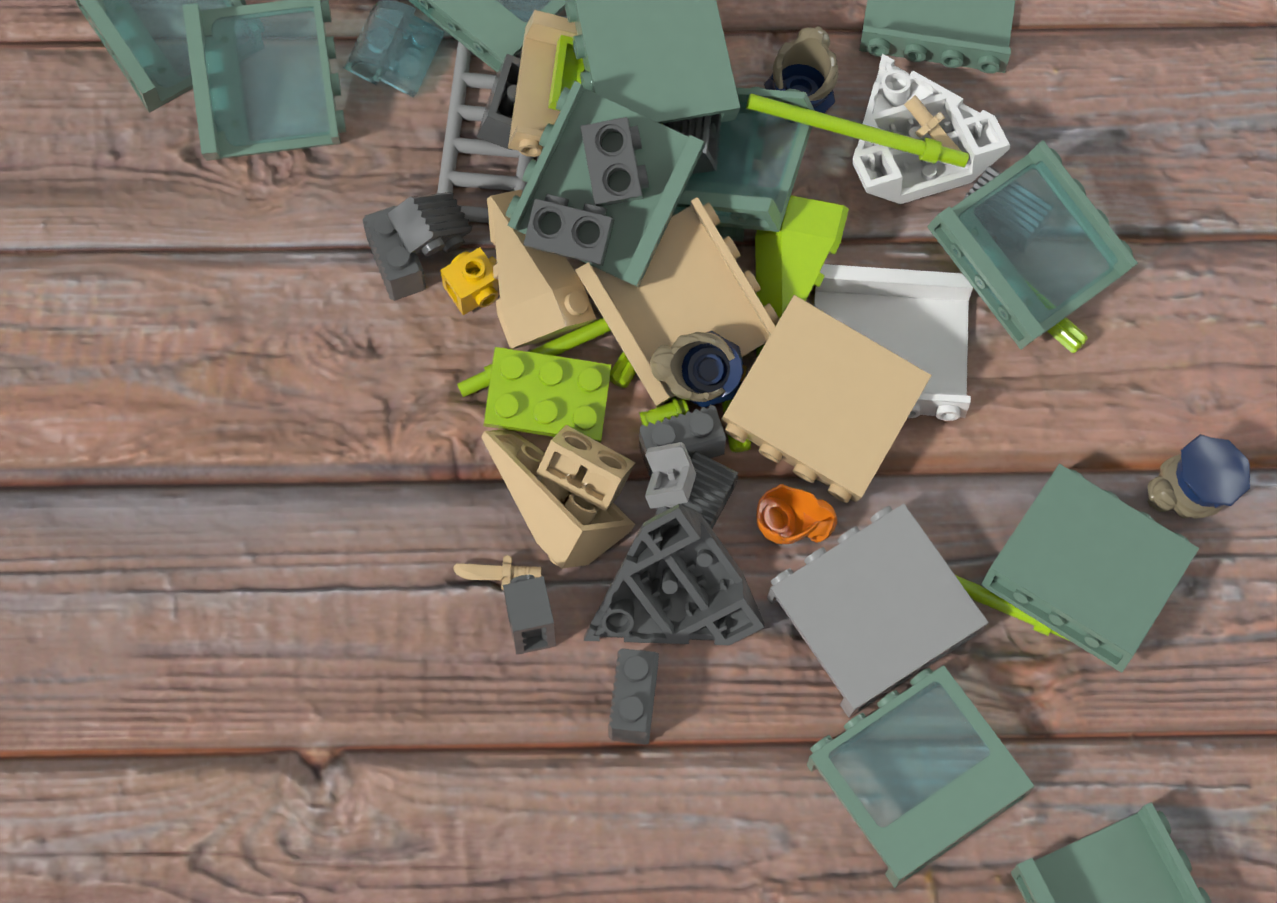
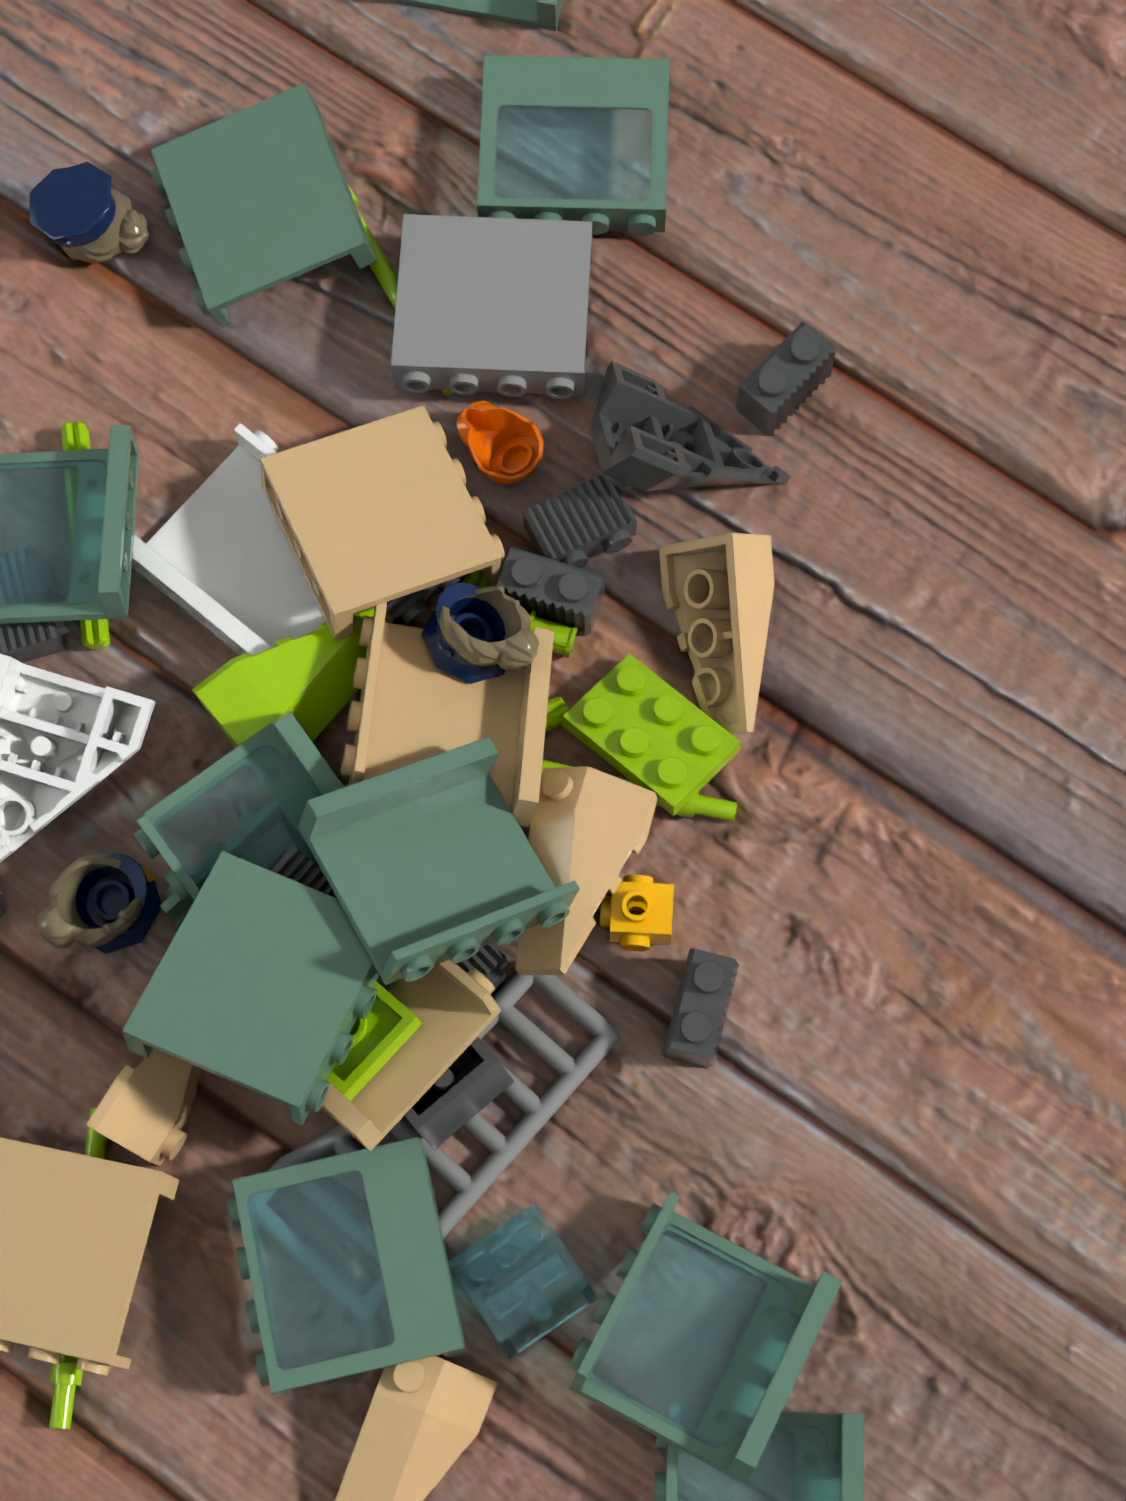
camera: 140 degrees left, 5 degrees up
(430, 223) = (643, 1000): dark grey brick -> none
(491, 572) = (821, 588): tan piece -> none
(529, 614) = (836, 508): dark grey brick -> none
(567, 240) = (523, 835): dark grey brick -> none
(585, 467) = (671, 622): tan brick -> none
(603, 164) = (418, 866): dark grey brick -> none
(671, 475) = (602, 534): light grey bracket -> none
(928, 149) = (53, 707): lime bar -> none
(929, 123) = (22, 732): tan piece -> none

